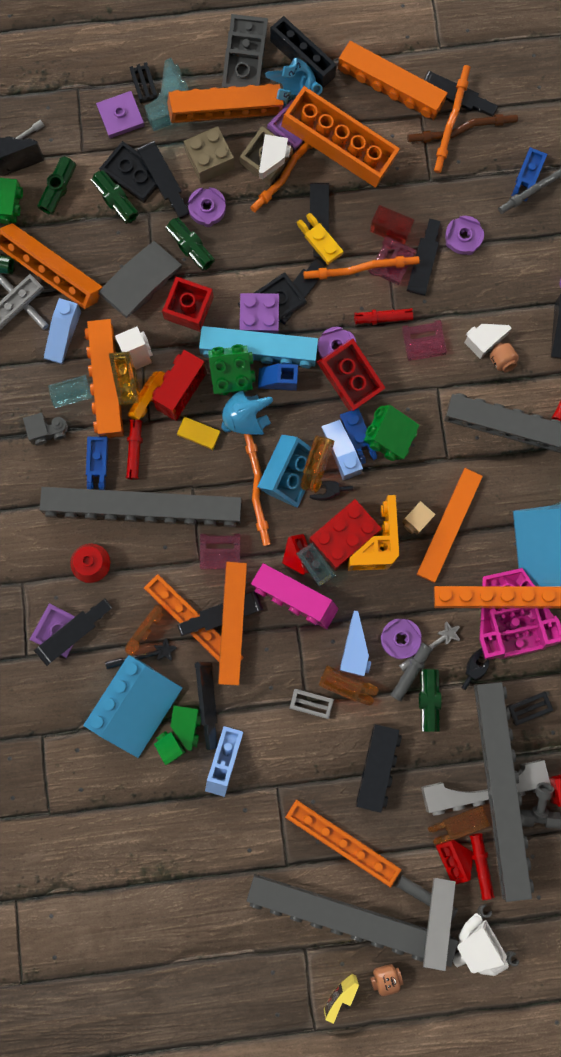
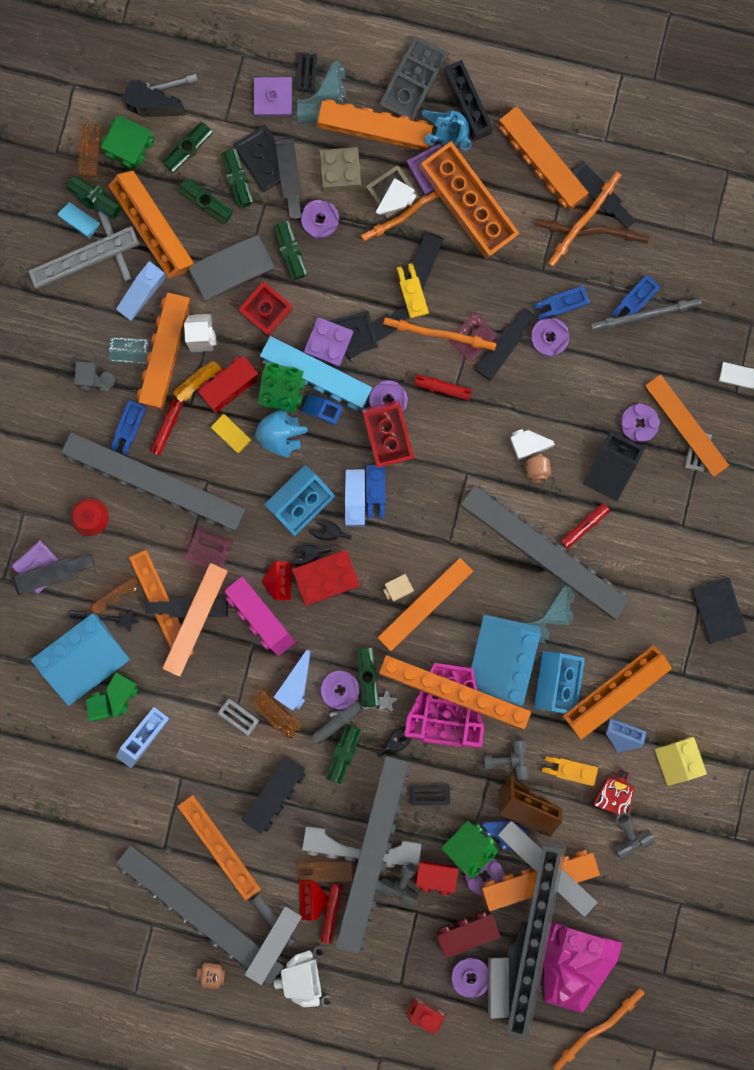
camera: 25 degrees right, 5 degrees up
(81, 225) = (196, 194): none -> dark green piece
(125, 378) = (181, 362): clear yellow slope -> none
(207, 702) = (146, 680): black piece -> none
(261, 524) = (255, 541): orange bar -> none
(315, 564) = (289, 595): clear light blue slope -> none
(316, 463) = (325, 503): clear orange hinge -> none
(321, 518) = (312, 554): none -> black hand
(342, 994) = (168, 972): light yellow slope -> none
(370, 555) = (339, 604): light orange bracket -> none
(391, 224) = (484, 303): clear red brick -> none
(391, 433) = (404, 501): green brick -> none
(425, 346) = (471, 430): clear pink plate -> none
(429, 627) = (369, 690): none -> dark green piece
(463, 200) = (563, 302): none -> blue hinge

